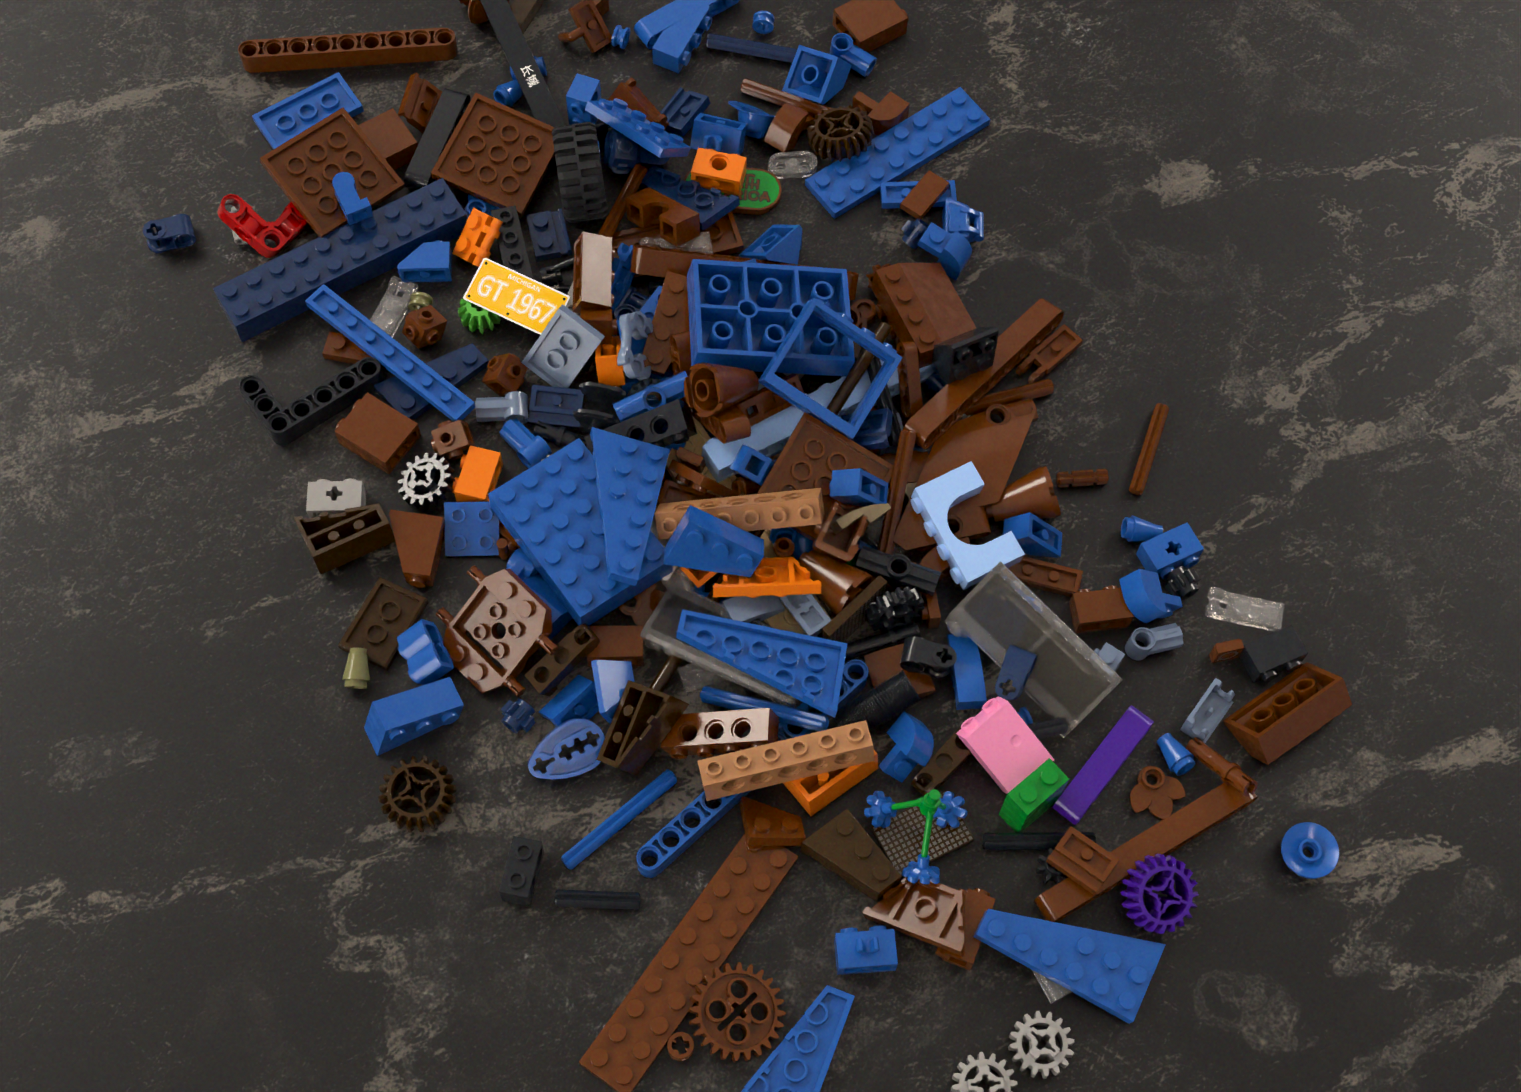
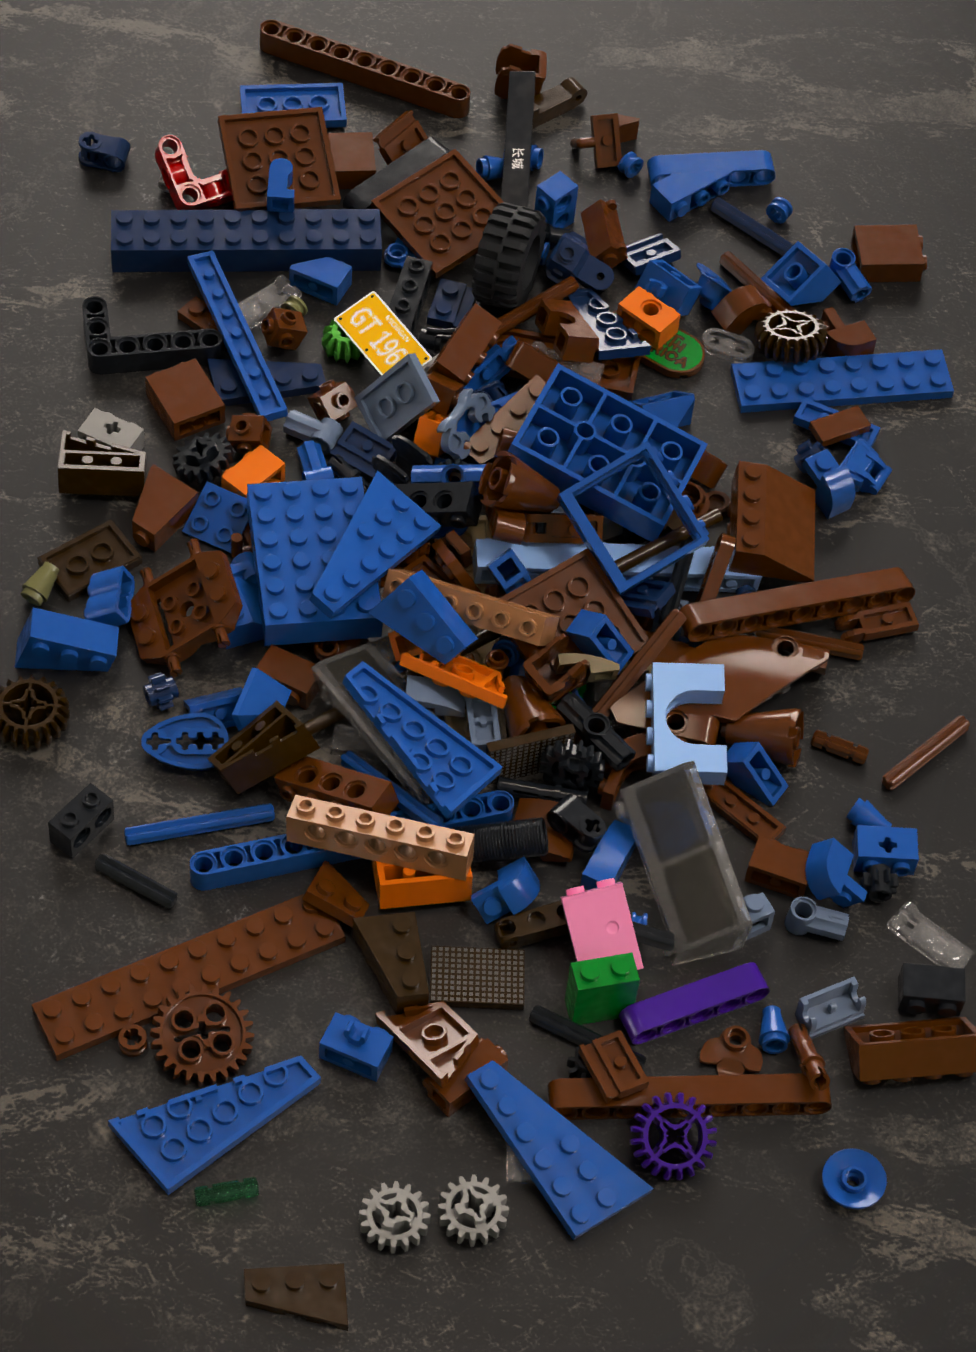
camera: 25 degrees right, 10 degrees down
(477, 237) = (380, 273): orange plate -> none
(555, 668) = (224, 663): dark brown leg -> none
(637, 128) = (589, 242): blue plate -> none
(932, 806) = (508, 964): blue plant -> none
(966, 353) = (781, 572): black slope -> none
(1016, 667) = (652, 867): dark blue piece -> none
(1226, 650) = (885, 964): reddish brown tile -> none

